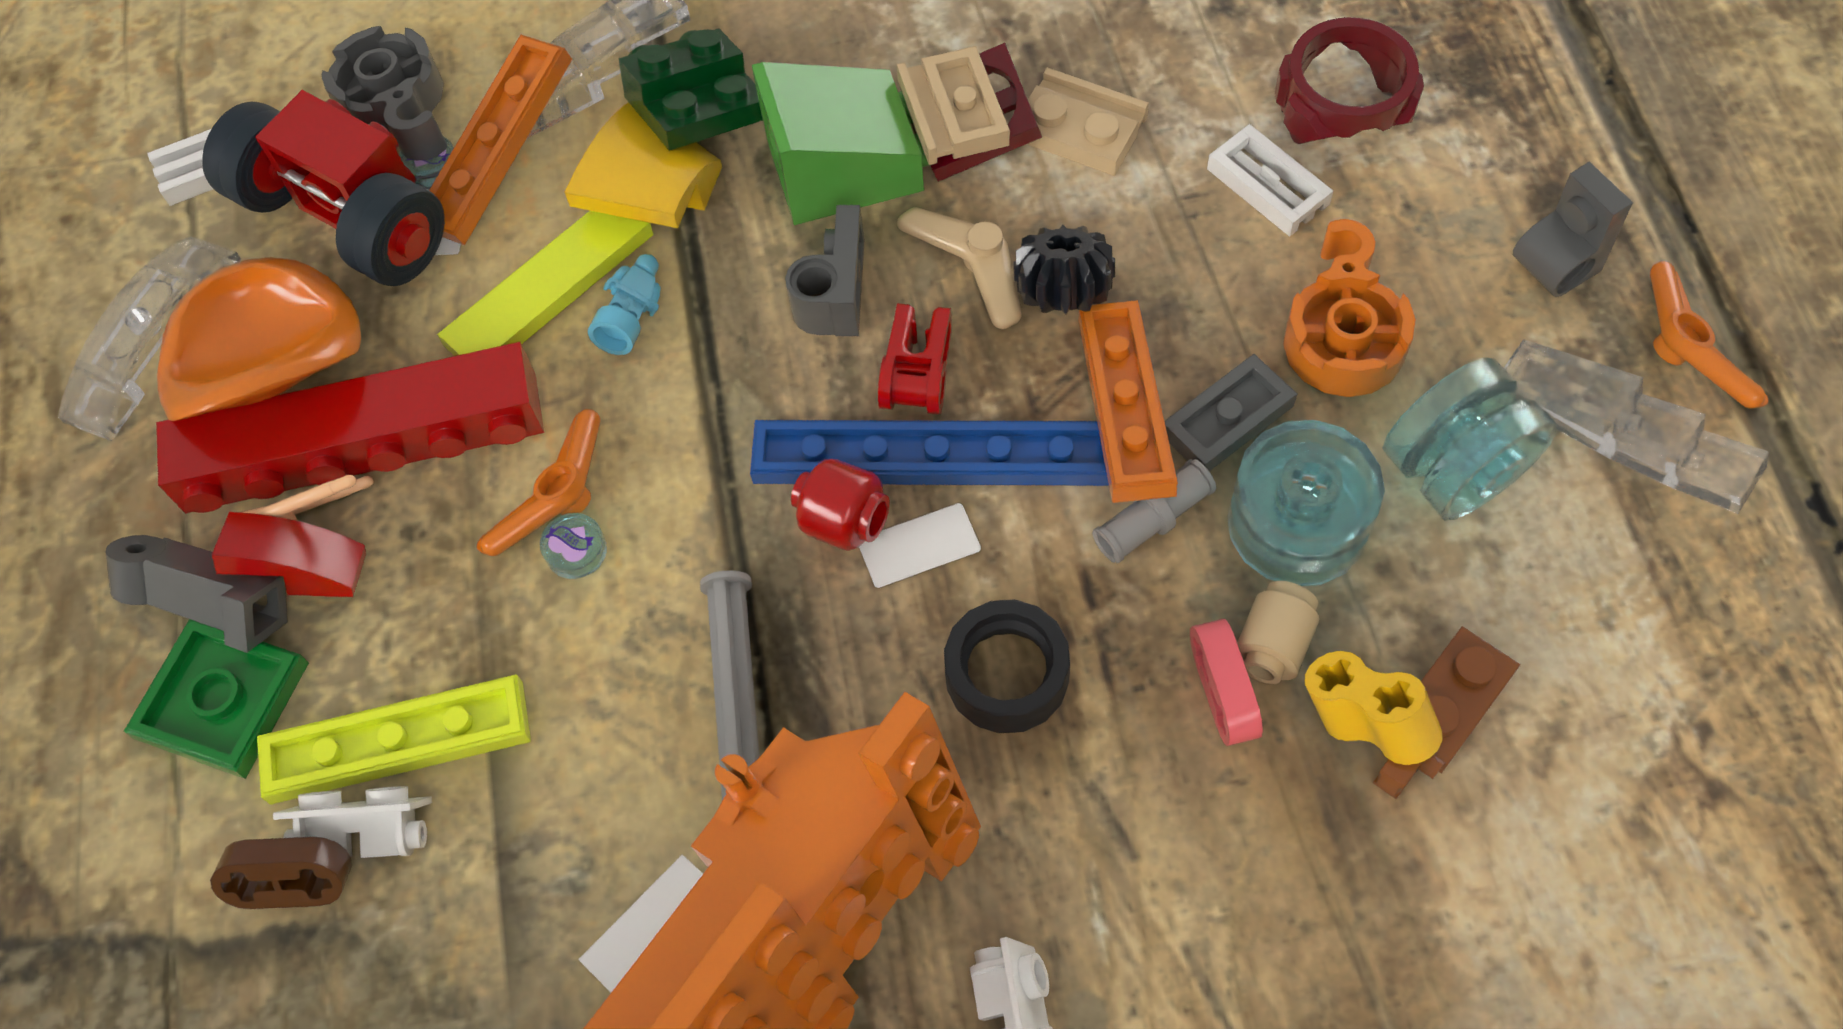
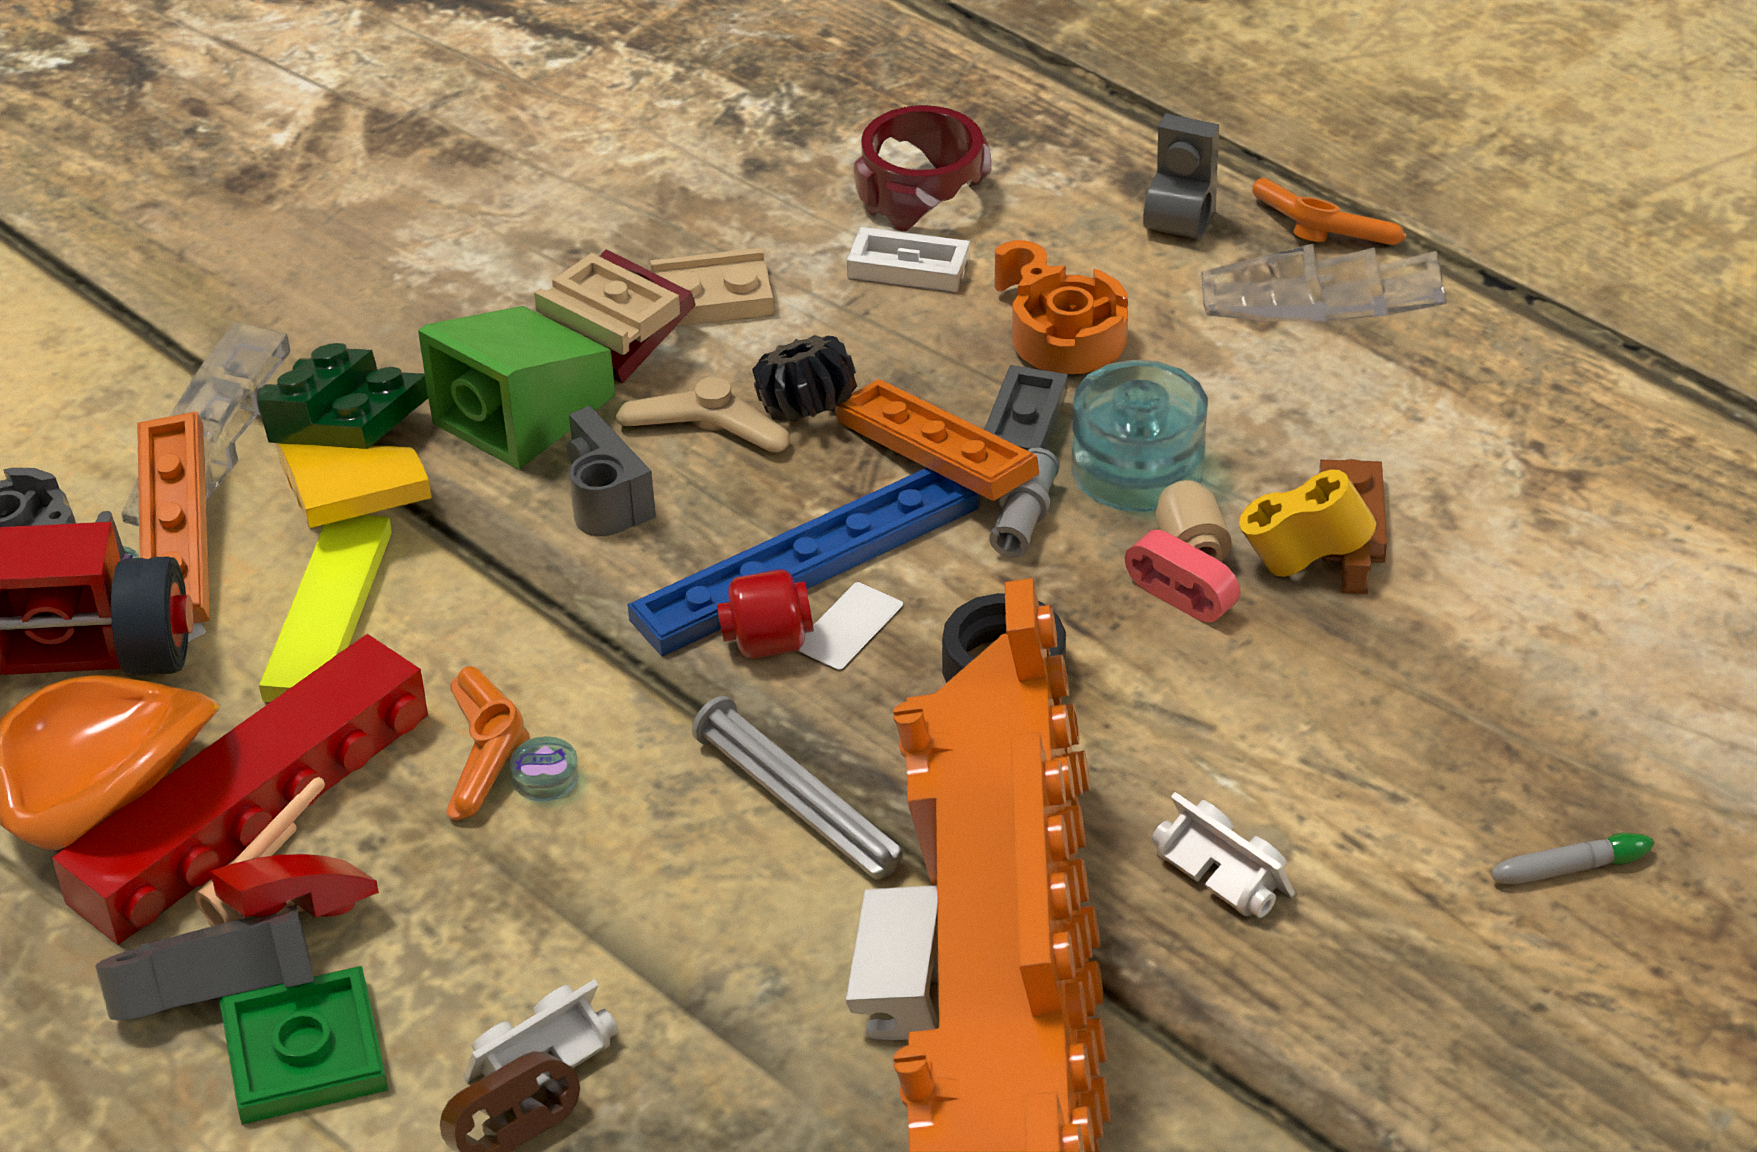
camera: 40 degrees left, 20 degrees down
(393, 739) = (508, 981): neon yellow tile -> none
(634, 292) = (431, 593): medium azure piece -> none
(916, 377) = (738, 505): red piece -> none
(1469, 438) = (1228, 329): clear light blue wheel -> none

